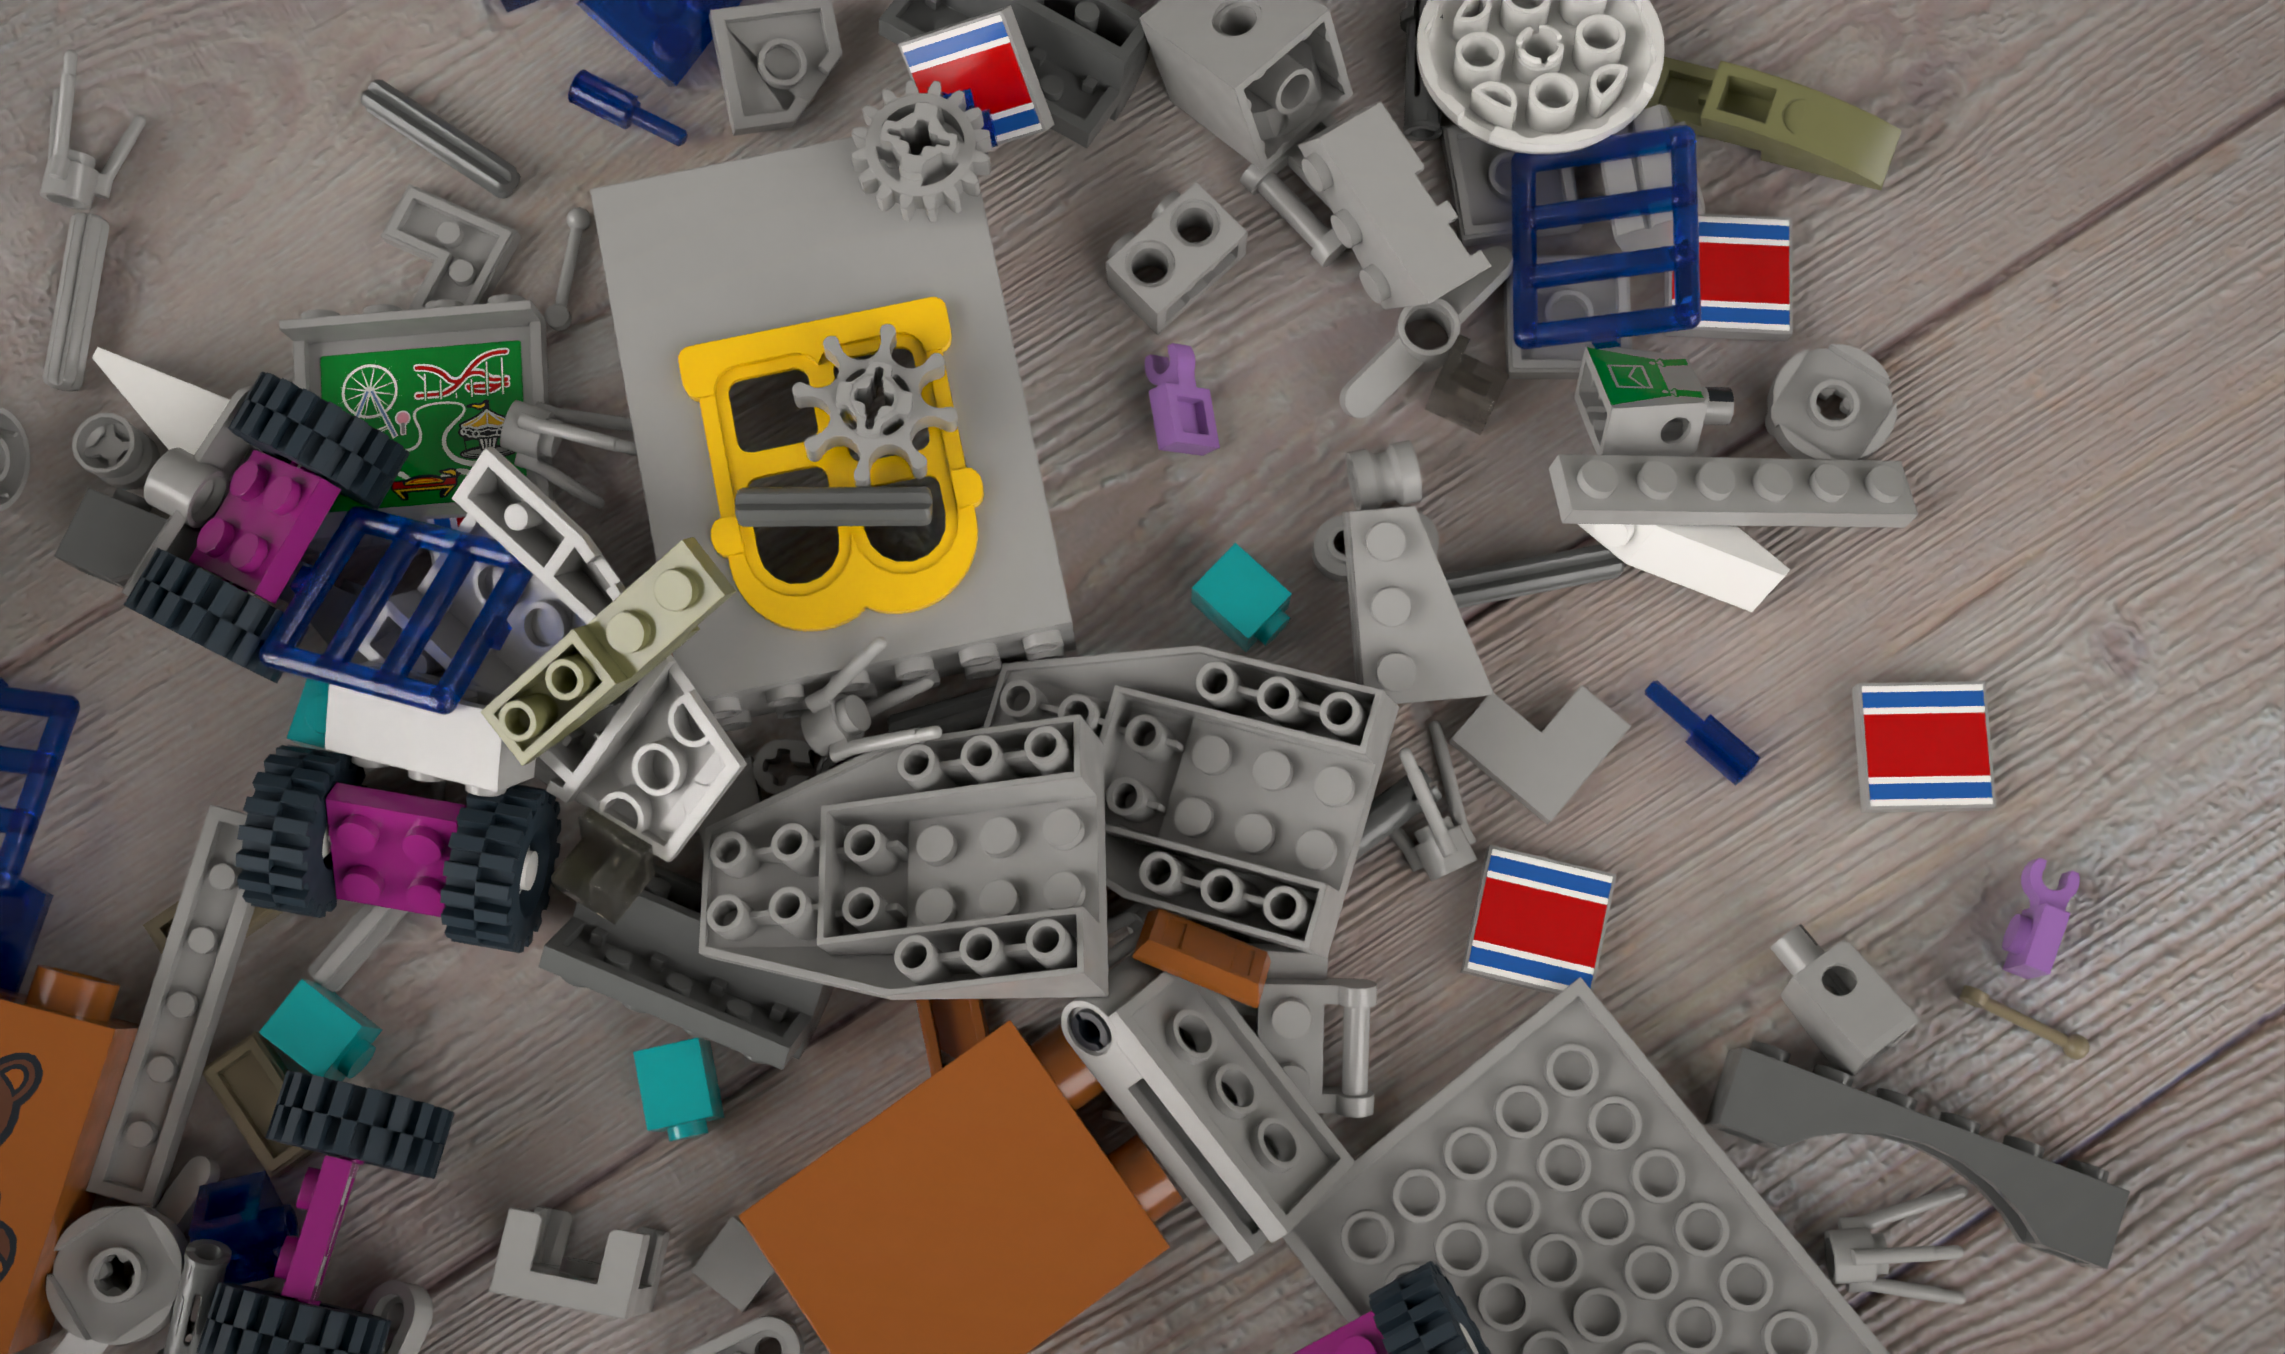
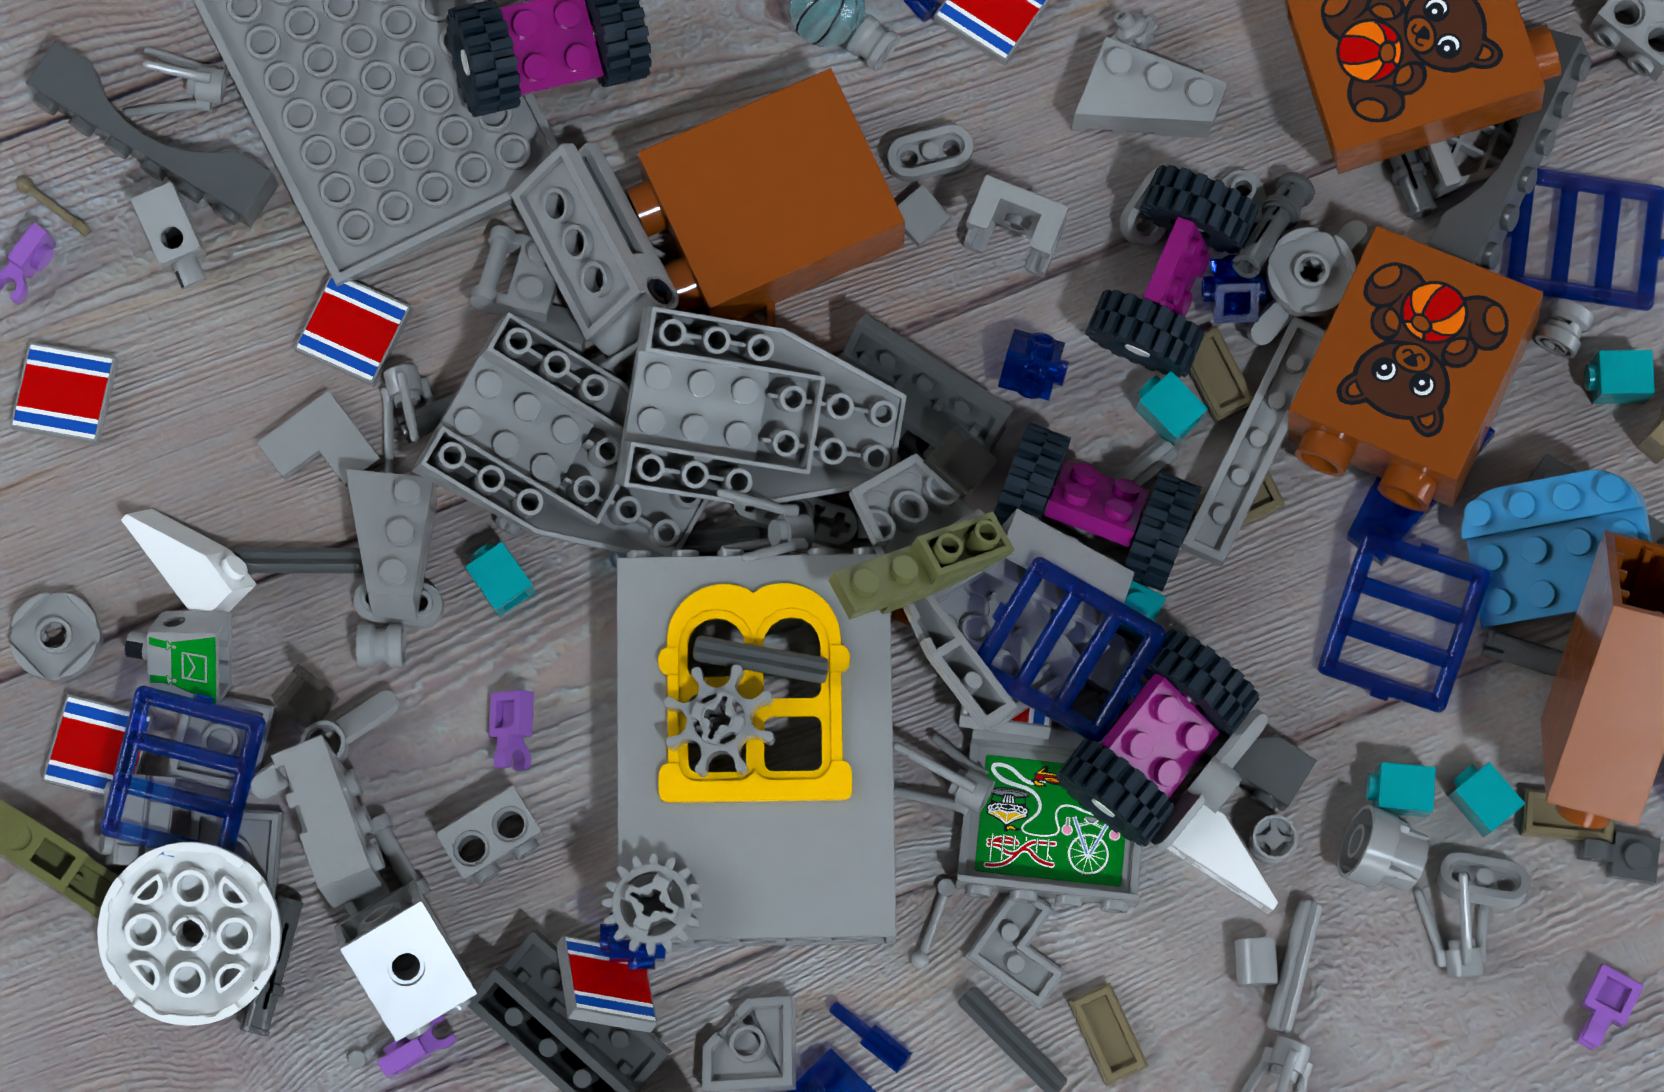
camera: 170 degrees left, 0 degrees up
(124, 291) = (1256, 962): none -> light grey beam
(317, 173) = (1108, 1034): none -> dark tan tile
(530, 1054) = (1033, 365): none -> clear blue brick
(679, 1088) = (940, 326): teal brick -> none
(1203, 956) = (579, 330): dark orange tile -> none
(1707, 736) = (206, 427): clear blue axle -> none
(1731, 491) = (145, 575): light grey plate -> none

